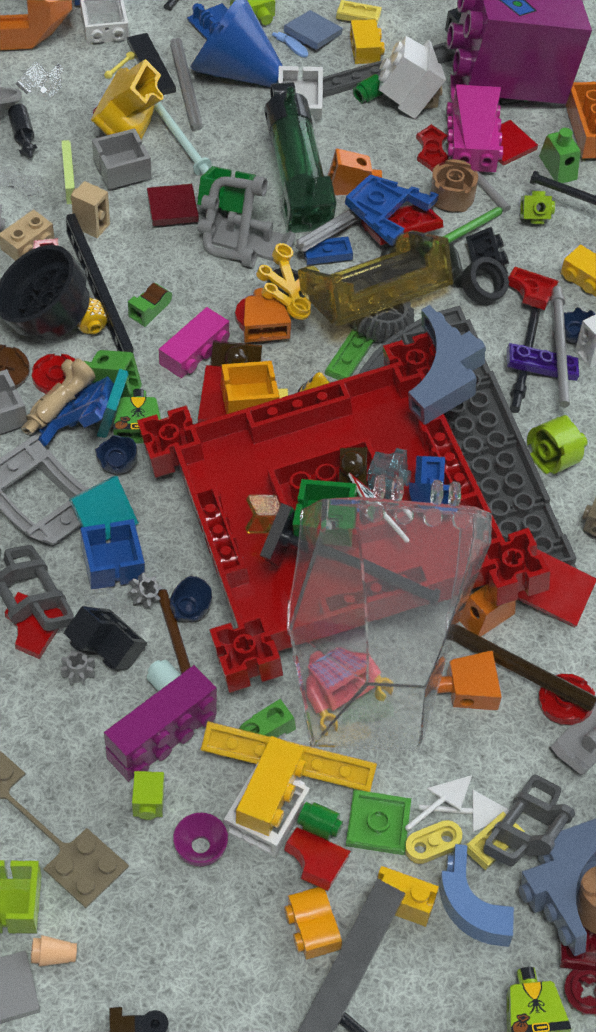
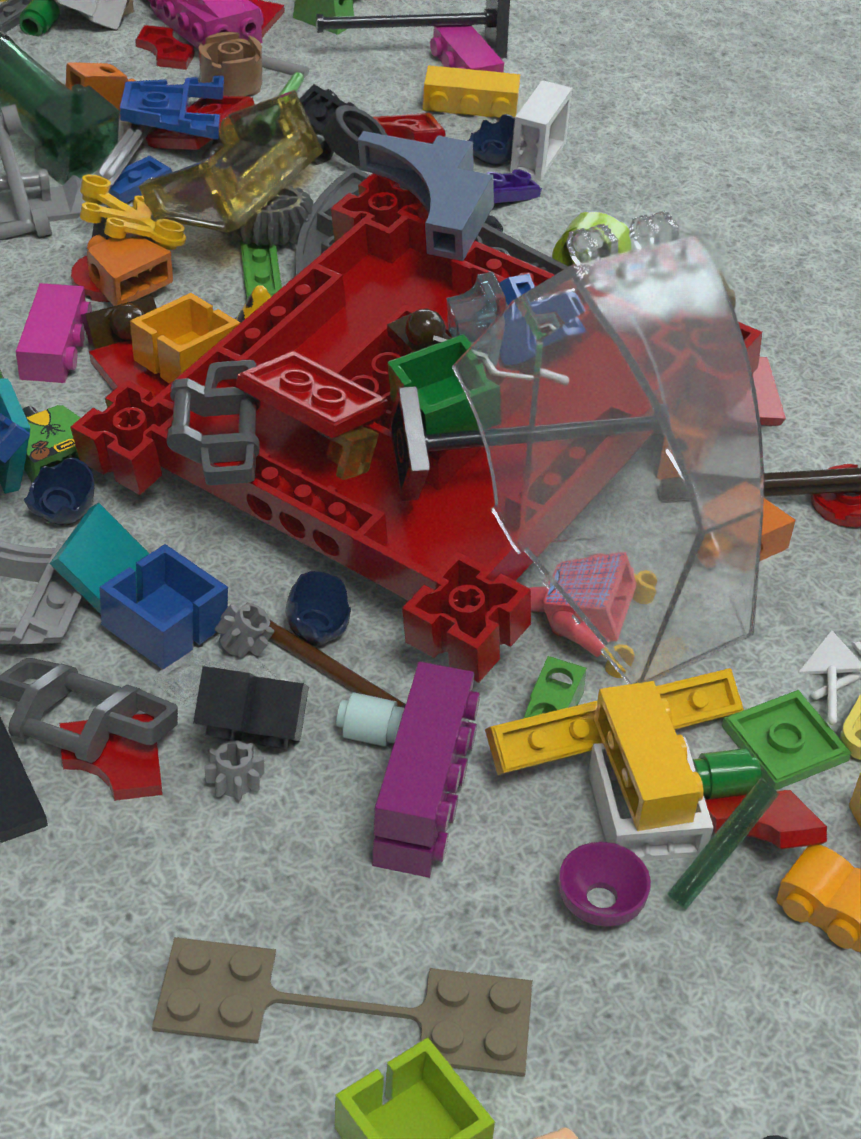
camera: 35 degrees left, 10 degrees down
(148, 794) = (484, 868): lime brick -> none
(213, 445) = (216, 402): none -> dark grey bar
(262, 472) = (312, 394): none -> red tile
(274, 857) = (723, 844): none -> clear green piece
(528, 207) = (342, 53): lime brick -> none
(558, 302) = (455, 126): light grey bar -> none

